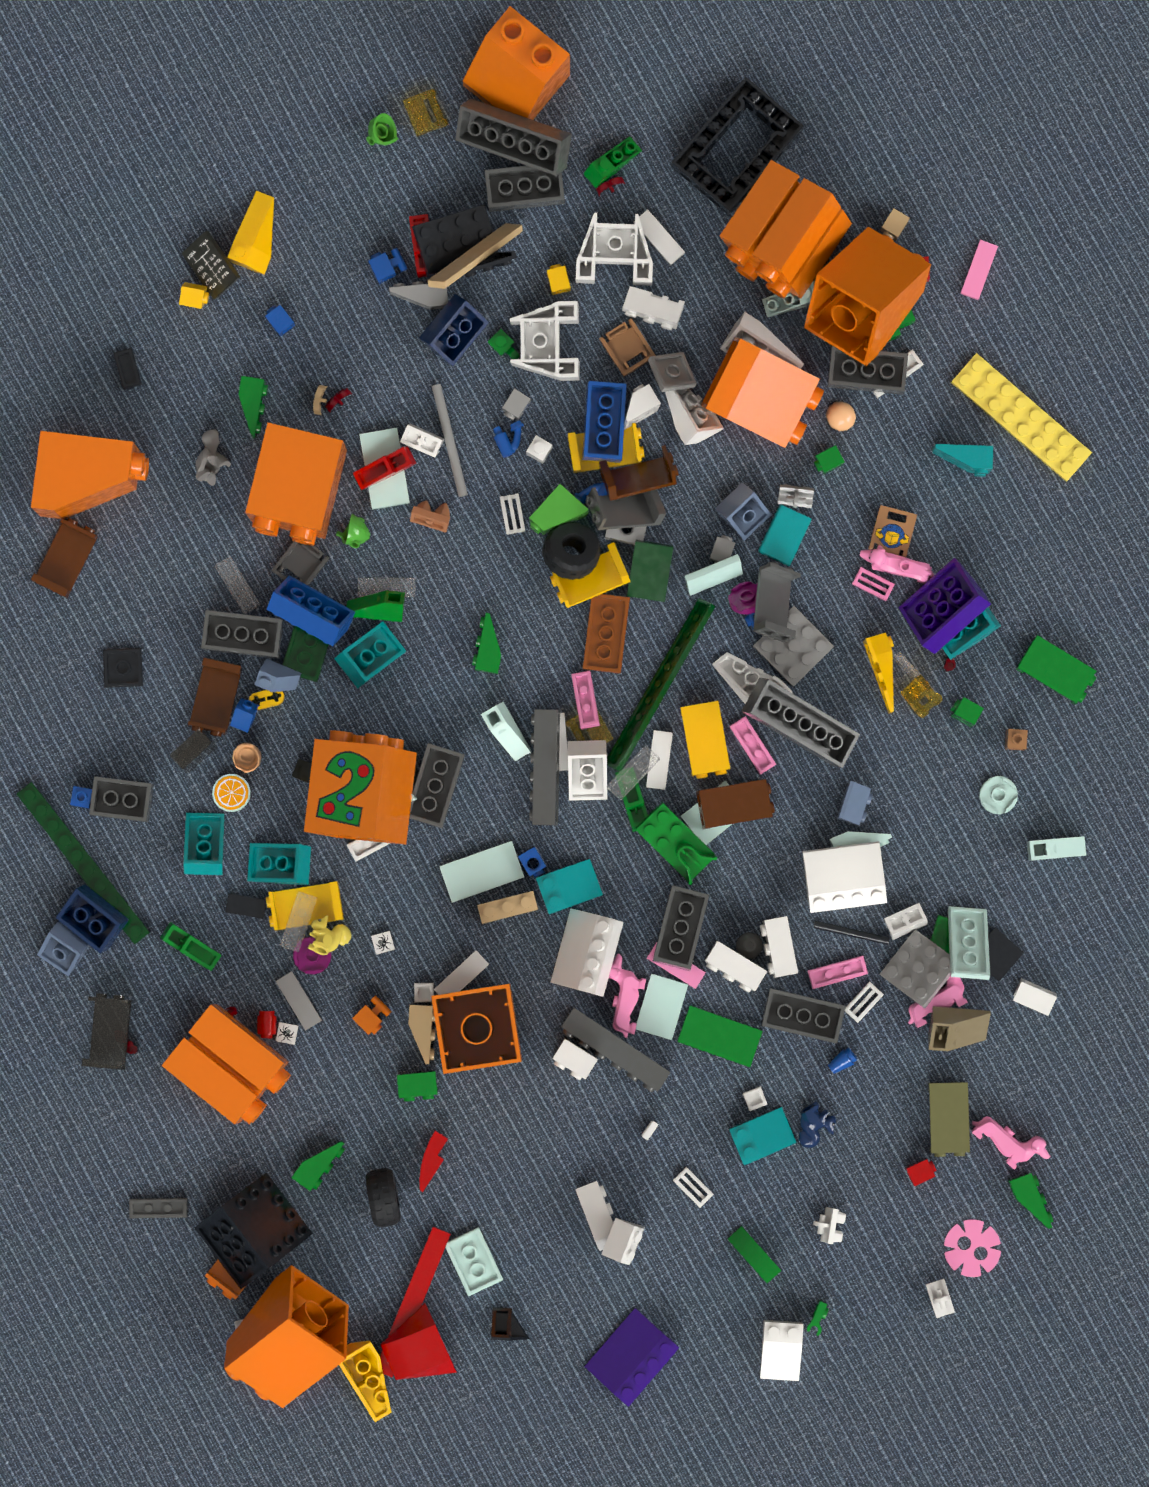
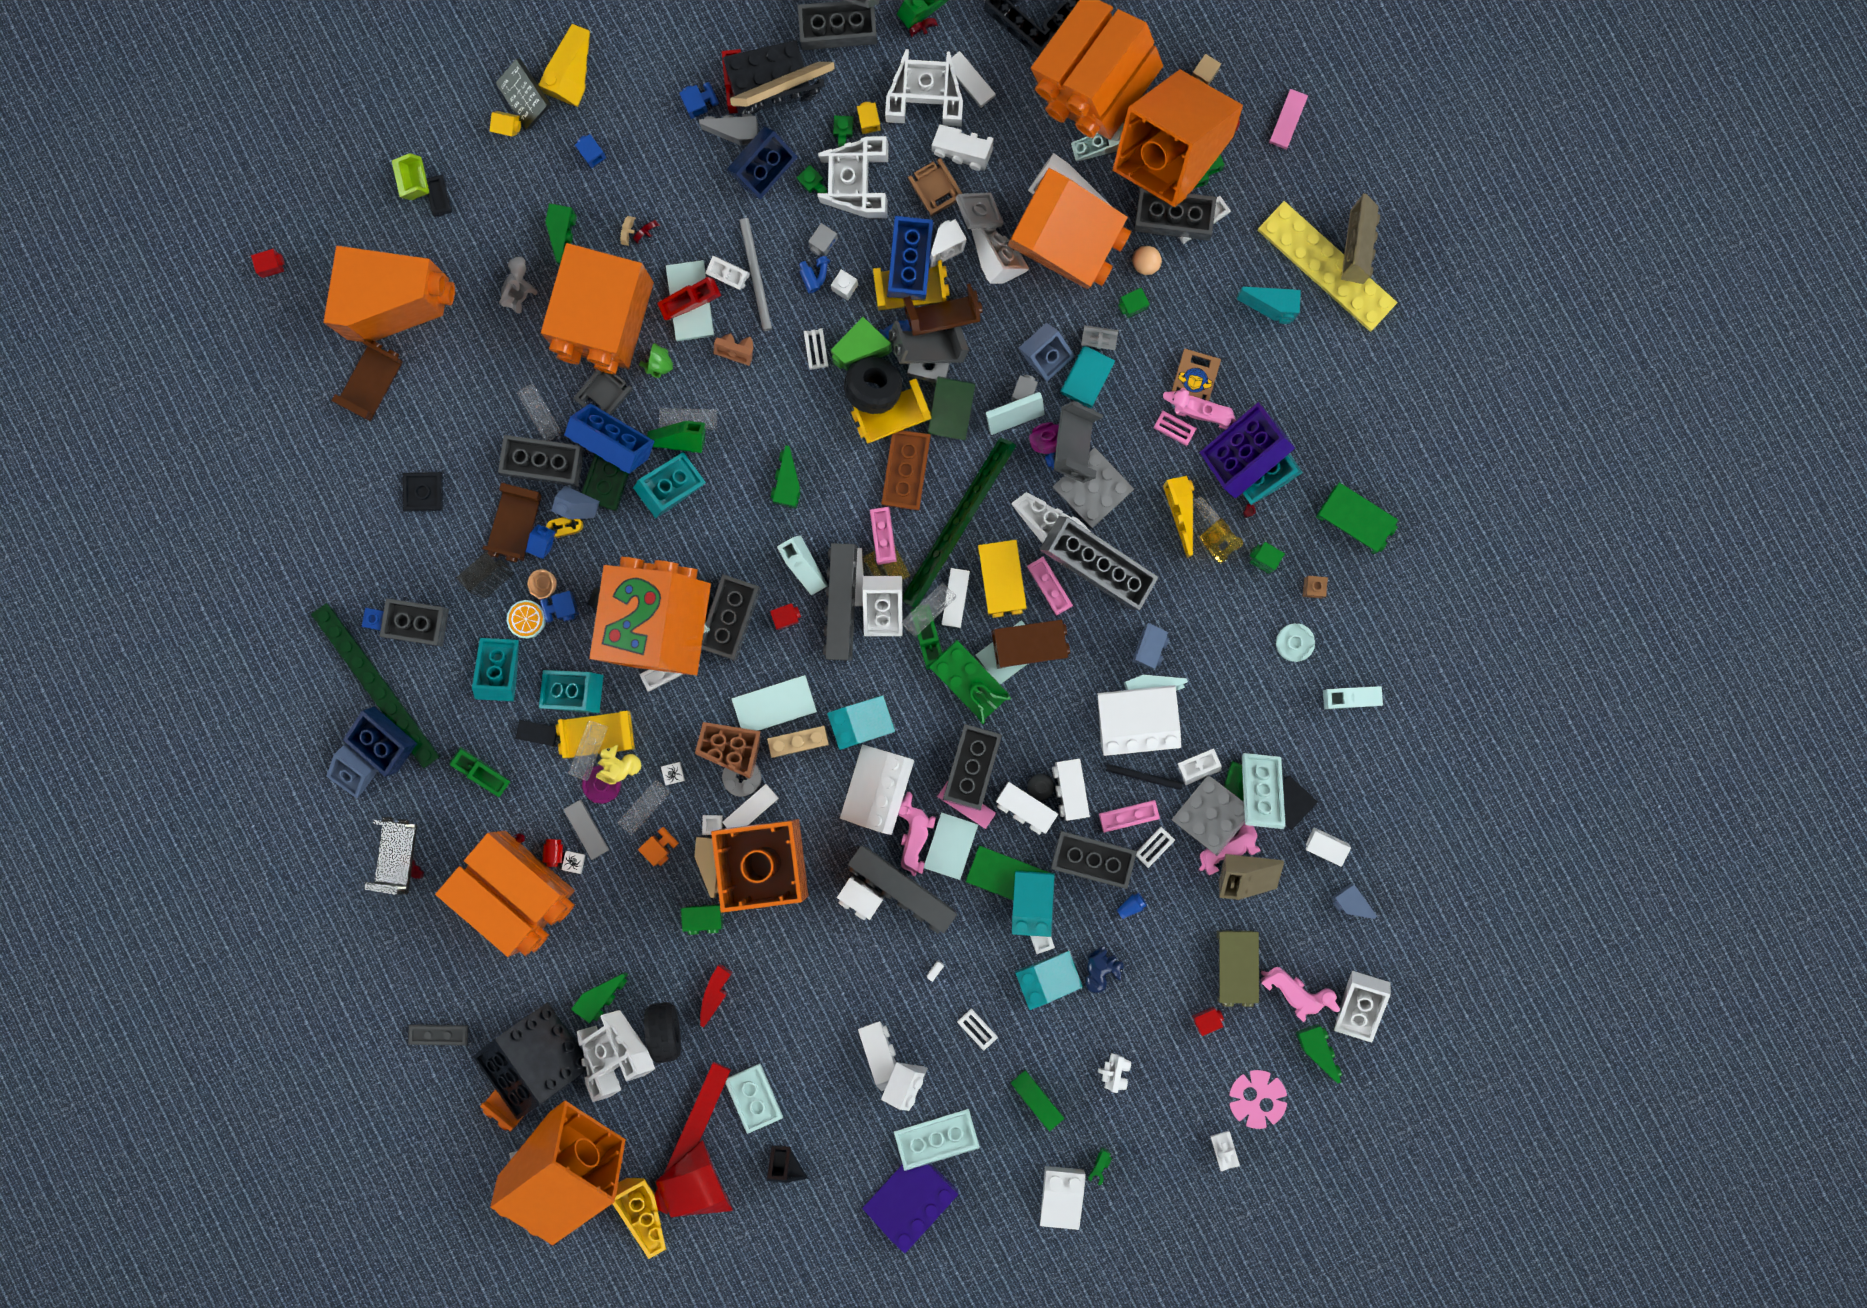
camera: 10 degrees right, 0 degrees up
(100, 351) = (410, 176): none -> lime panel
(268, 777) = (563, 605): none -> blue brick
(330, 1215) = (608, 1049): none -> white wedge
(355, 977) = (644, 807): none -> clear tile
(440, 914) = (729, 747): none -> nougat wedge
(445, 935) = (742, 789): none -> light grey plate
(491, 783) = (785, 616): none -> red brick
(532, 853) = (818, 691): blue brick -> none
(533, 290) = (843, 128): none -> green plate
(656, 1296) = (936, 1139): none -> light aqua tile
(745, 1061) = (1033, 904): none -> teal slope
(1053, 393) = (1360, 240): none -> dark tan slope
(1060, 1051) = (1351, 902): none -> sand blue slope
(1072, 1153) = (1362, 1006): none -> white slope

